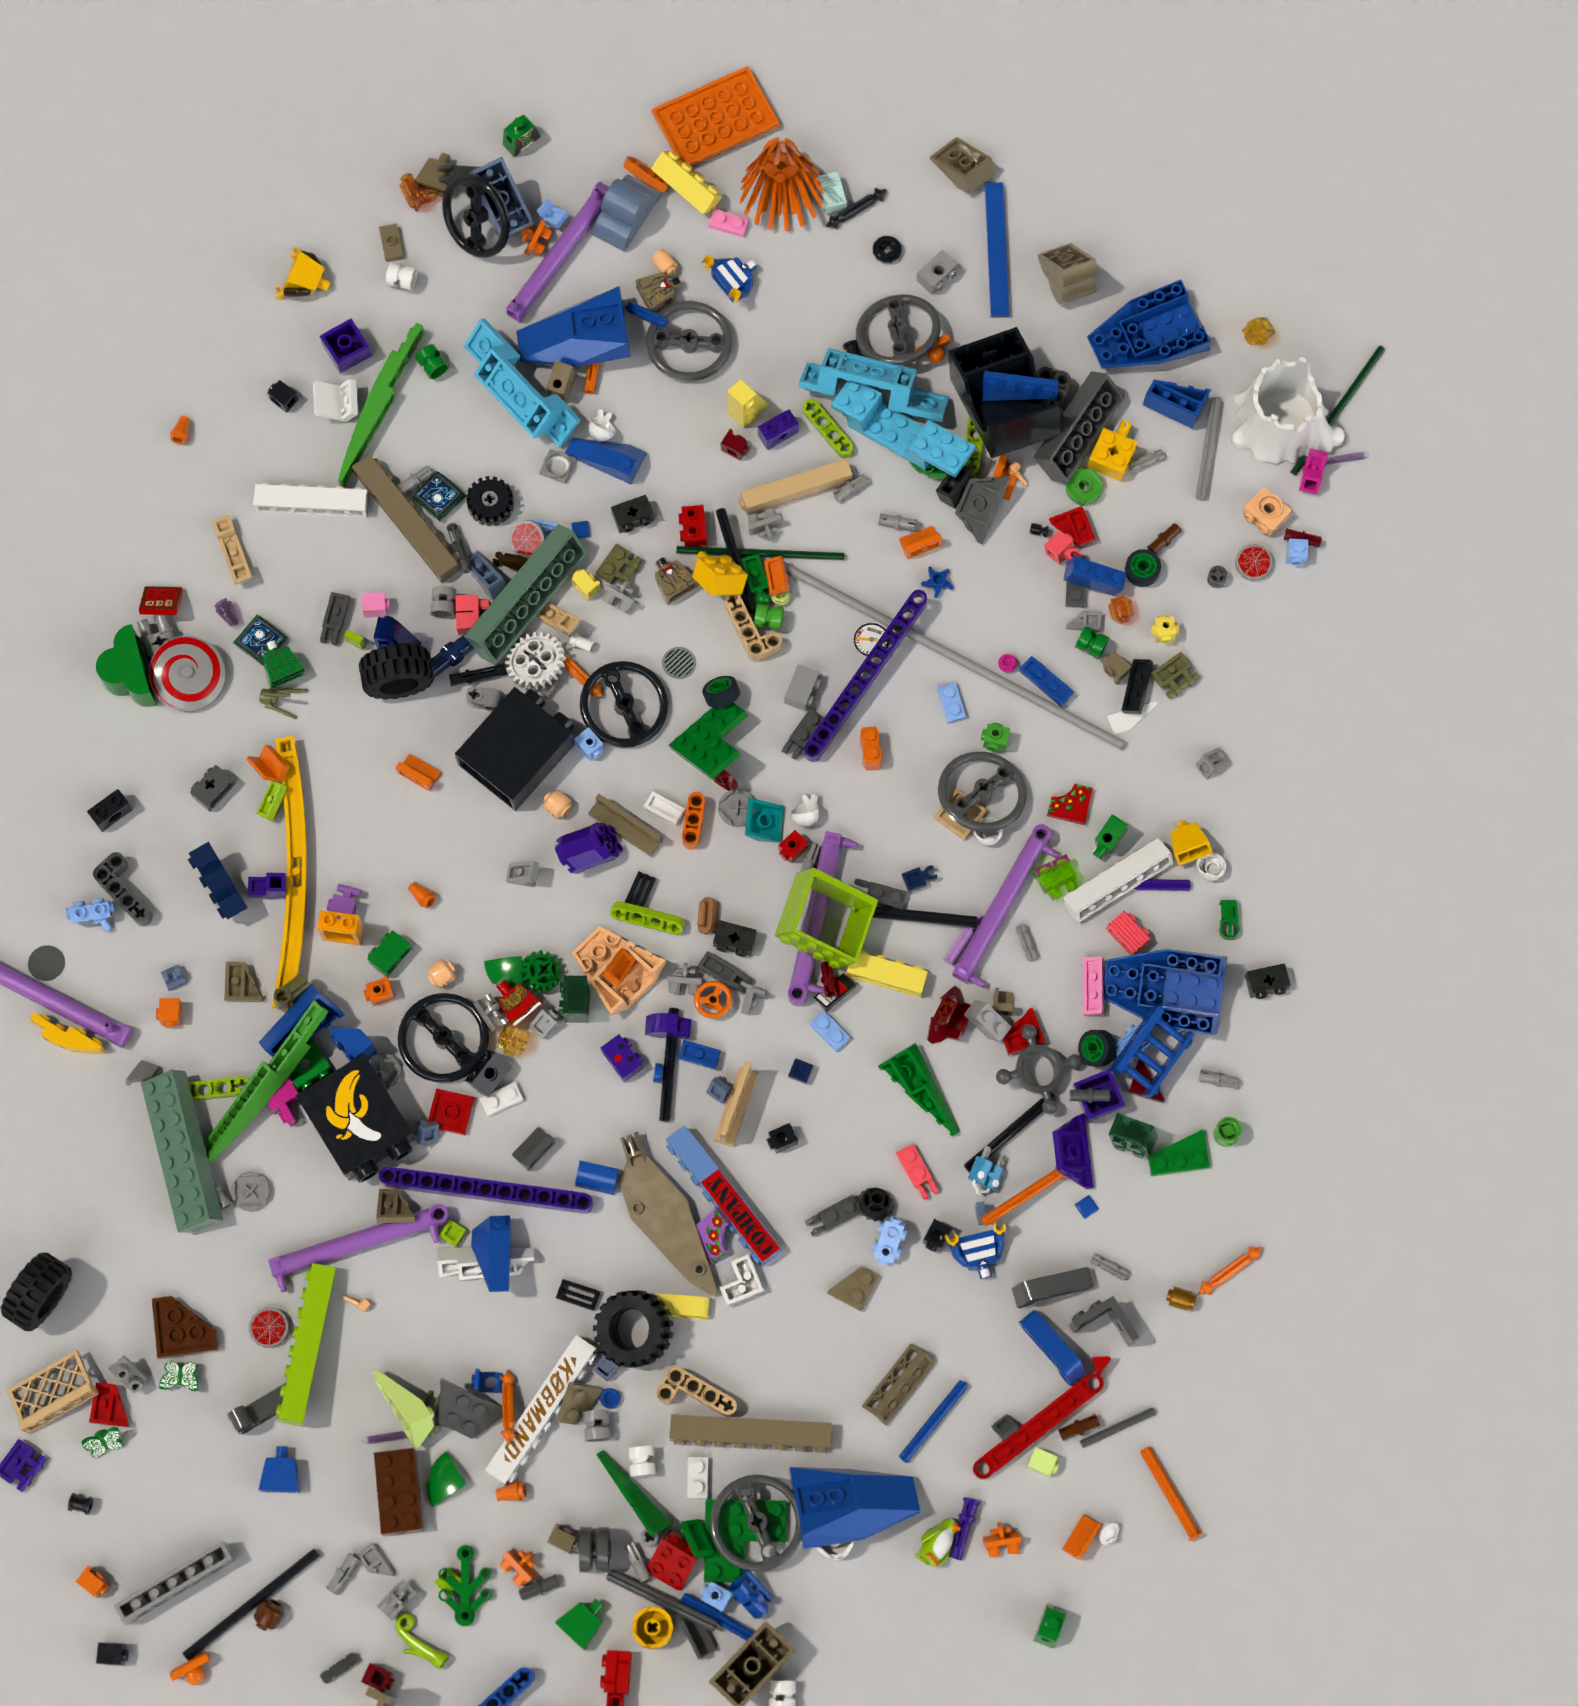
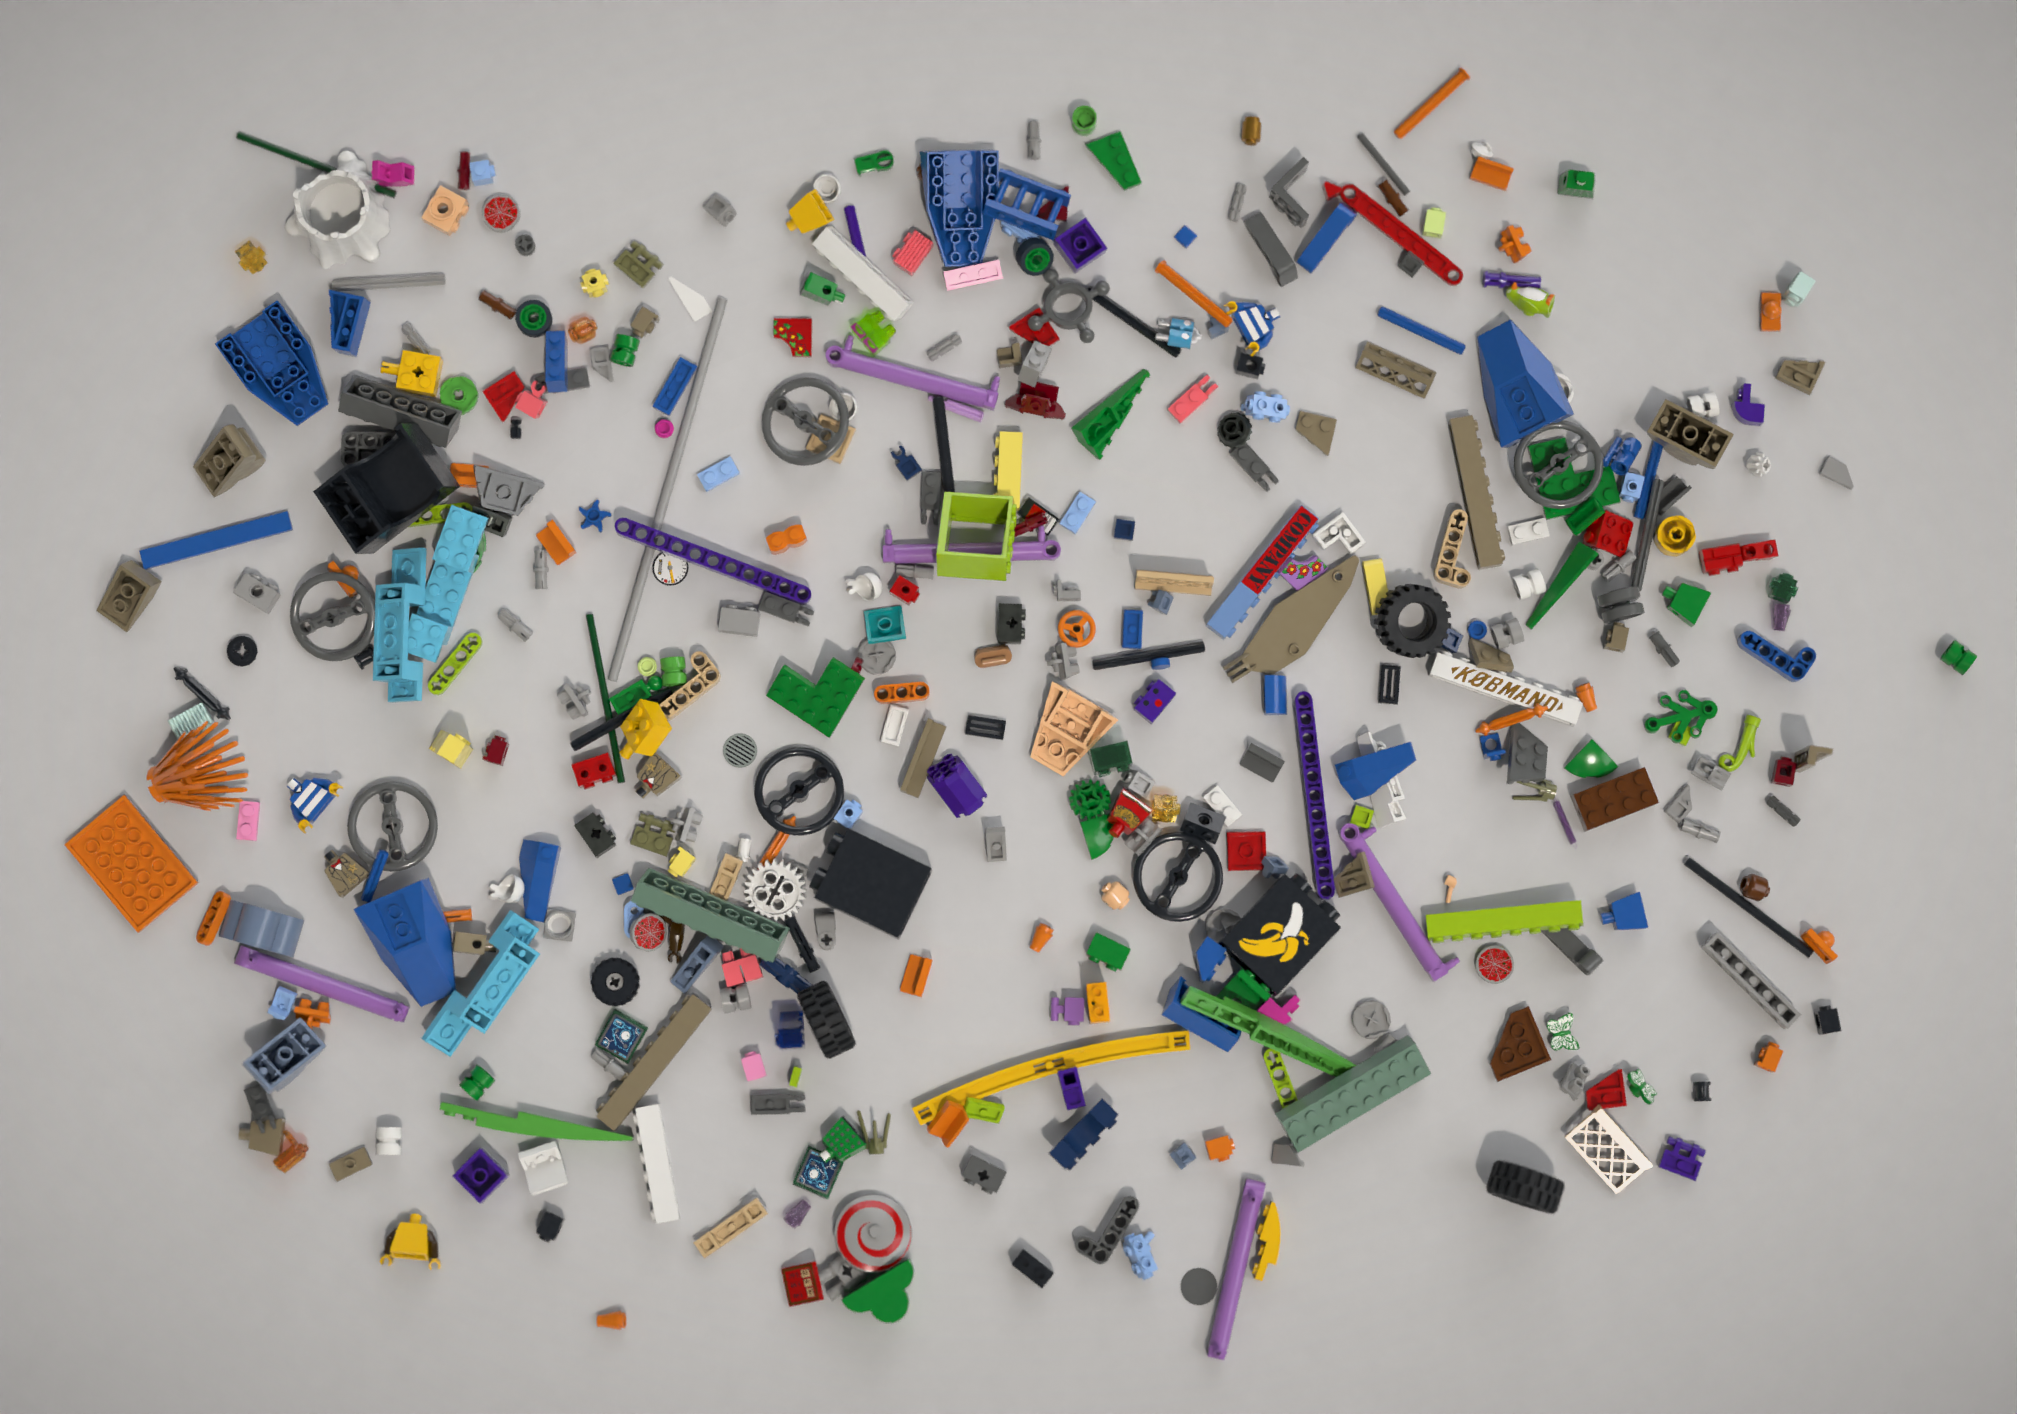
camera: 105 degrees left, 10 degrees up
(240, 984) = (1173, 1089): dark tan wing -> none
(291, 990) = (1171, 1032): olive piece -> none
(384, 995) = (1140, 949): orange brick -> none
(410, 1409) = (1545, 801): yellowish green wedge -> none
(459, 547) = (672, 1000): dark grey piece -> none
(476, 215) = (310, 1076): black piece -> none
(519, 135) = (200, 1061): green torso -> none
(522, 1564) = (1649, 669): orange hips -> none
(557, 804) = (917, 829): light nougat head -> none
(619, 967) = (1071, 723): orange tile -> none
(647, 915) = (1010, 712): lime beam -> none
(664, 262) = (310, 873): light nougat brick -> none
(667, 1024) = (1113, 665): dark purple brick -> none
(687, 182) = (214, 873): light yellow brick -> none
(721, 691) = (764, 697): black wheel -> none
(723, 972) = (1045, 628): dark grey hinge -> none
(776, 576) = (629, 673): orange tile -> none
(778, 429) = (469, 711): dark purple brick -> none
(785, 1130) = (1191, 523): black brick -> none
(795, 486) = (527, 679): tan brick -> none
(995, 737) = (743, 415): bright green brick -> none
(1013, 470) = (456, 468): light nougat hand -> none
(1017, 387) = (379, 475): blue wing -> none
(1073, 1151) = (1138, 258): dark purple wing -> none
(1090, 1095) = (1086, 250): dark grey pin -> none
(1133, 1136) = (1112, 204): clear green brick -> none
(1137, 686) = (659, 298): black plate -> none
(1230, 1270) = (1212, 92): orange wheel -> none
(1276, 974) = (920, 105): pearl dark grey brick -> none
(1344, 458) = (368, 145): medium lavender piece -> none

